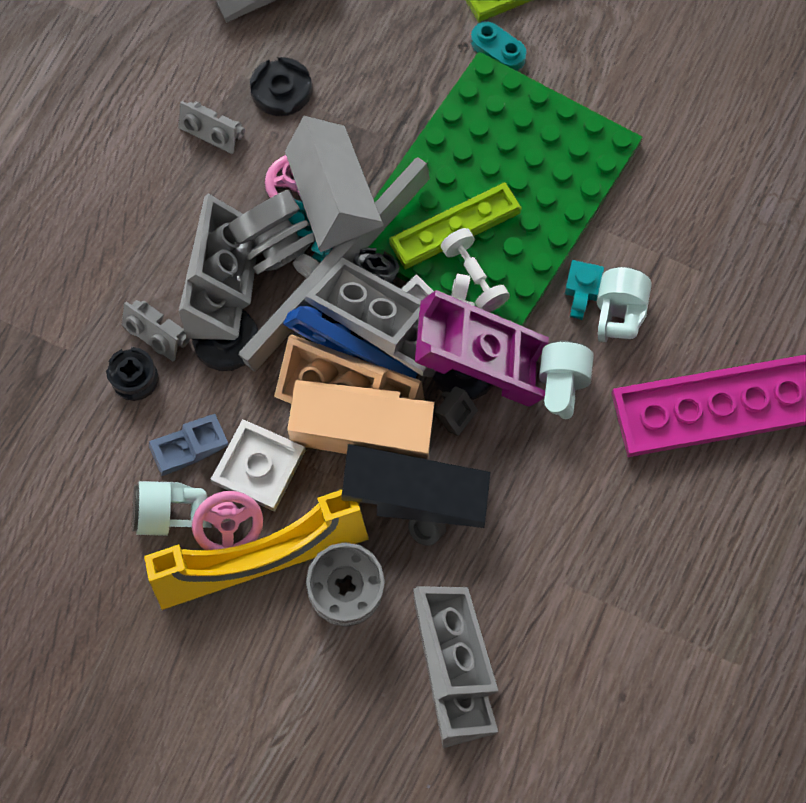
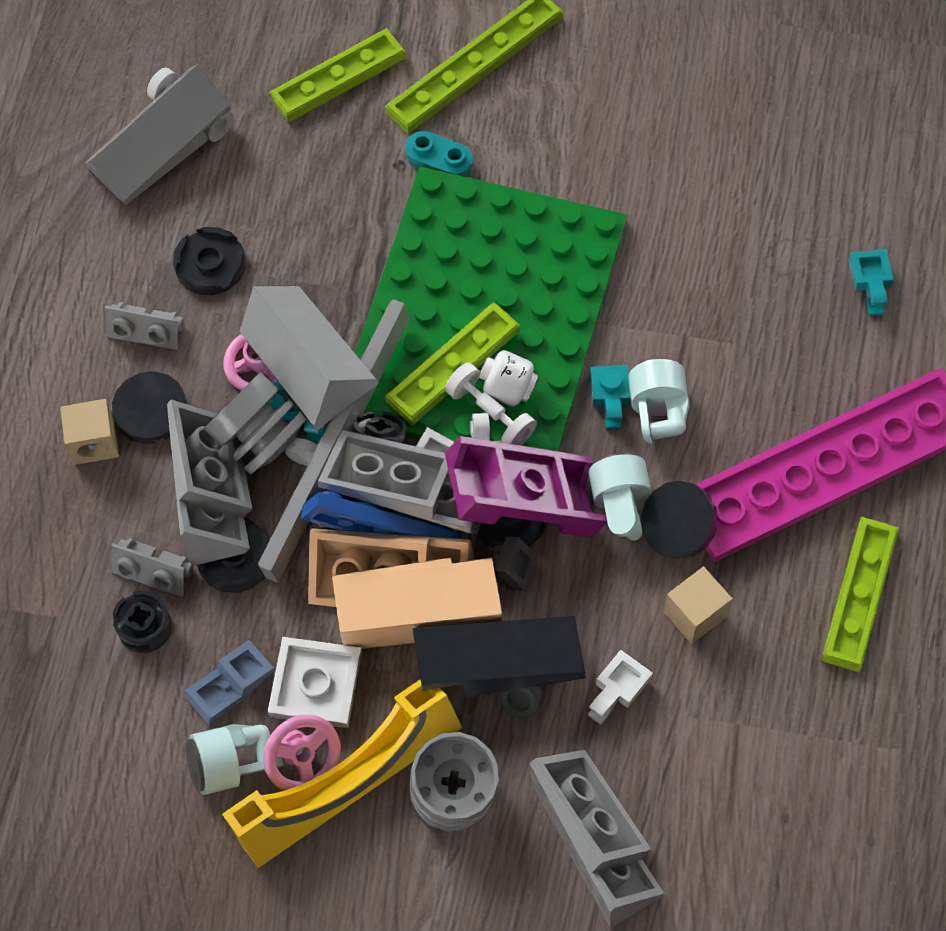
camera: 15 degrees left, 5 degrees down
(137, 203) = (89, 431): none -> tan piece
(186, 190) = (142, 406): none -> black tile
(497, 250) = (508, 378): none -> white head
(515, 538) = (620, 682): none -> white plate
(601, 490) = (697, 605): none -> tan piece
(607, 412) = (679, 519): none -> black tile
(746, 520) = (859, 594): none -> lime tile

